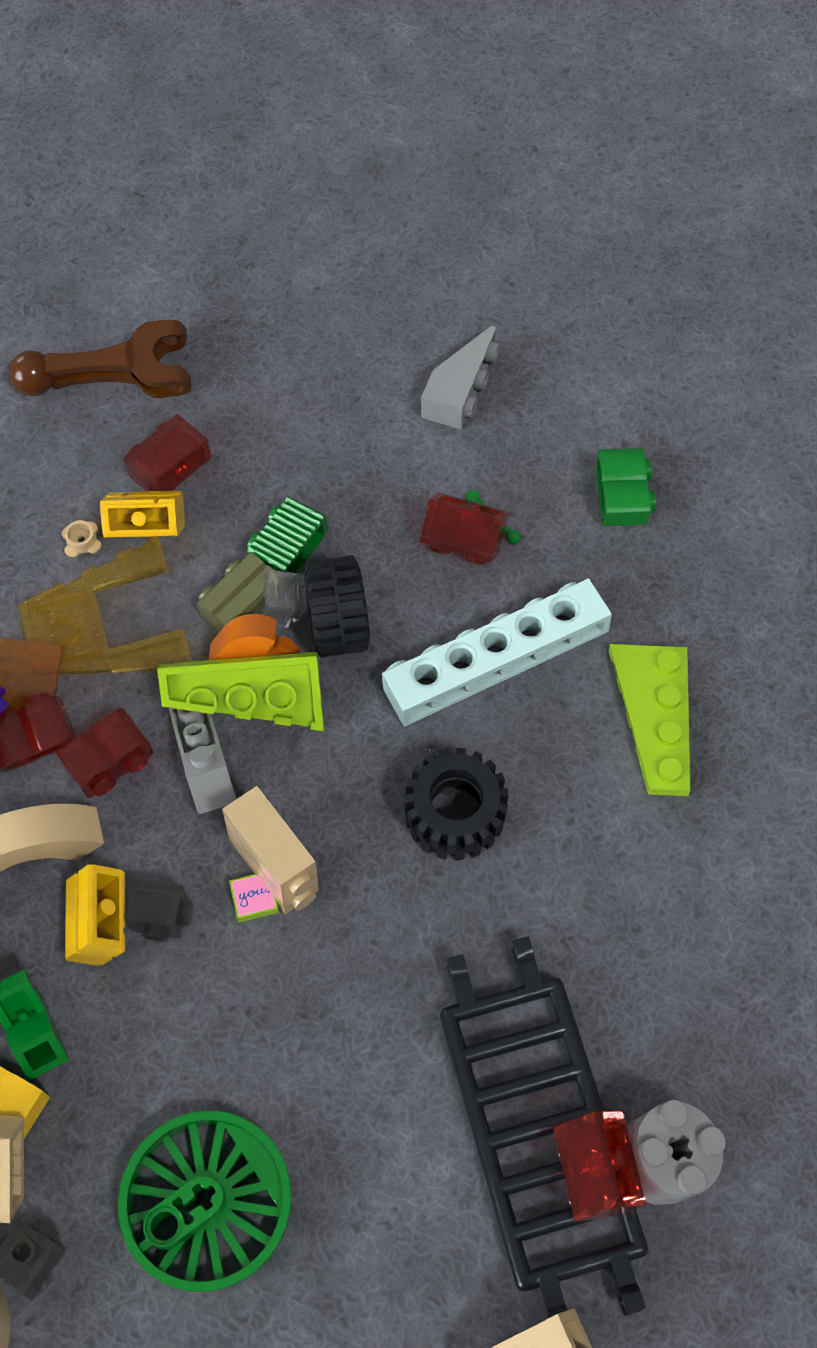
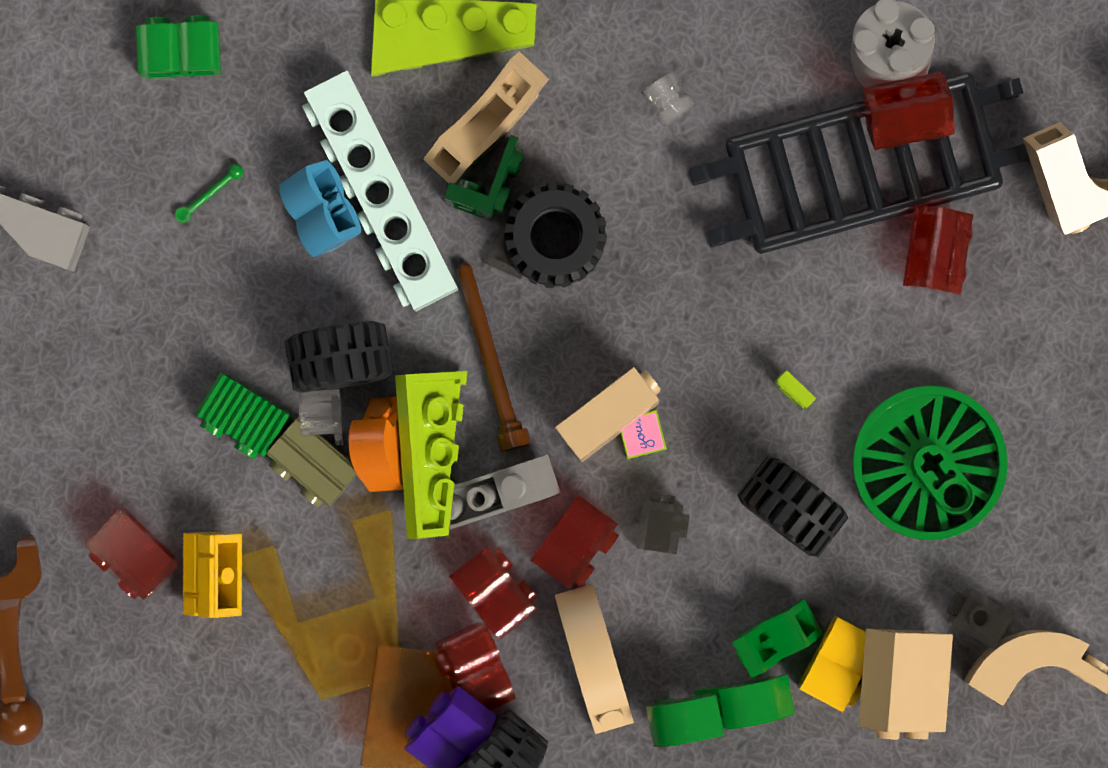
camera: 90 degrees left, 25 degrees up
(78, 530) = (224, 636): tan plate -> none
(95, 915) = (668, 584): yellow brick -> none
(147, 827) = (575, 542): none -> clear red brick
(162, 1036) = (792, 506): none -> black tyre
(261, 770) = (511, 432): none -> reddish brown piece
(292, 1048) = (794, 390): none -> lime tile
(443, 1209) = (938, 249): none -> clear red brick
(463, 528) = (234, 223): clear red brick -> none
(485, 592) = (320, 209): none -> dark azure brick
(506, 747) = (470, 196): none -> dark green bracket
(565, 742) = (487, 120): none -> tan arch
(600, 917) = (667, 96): none -> clear wheel

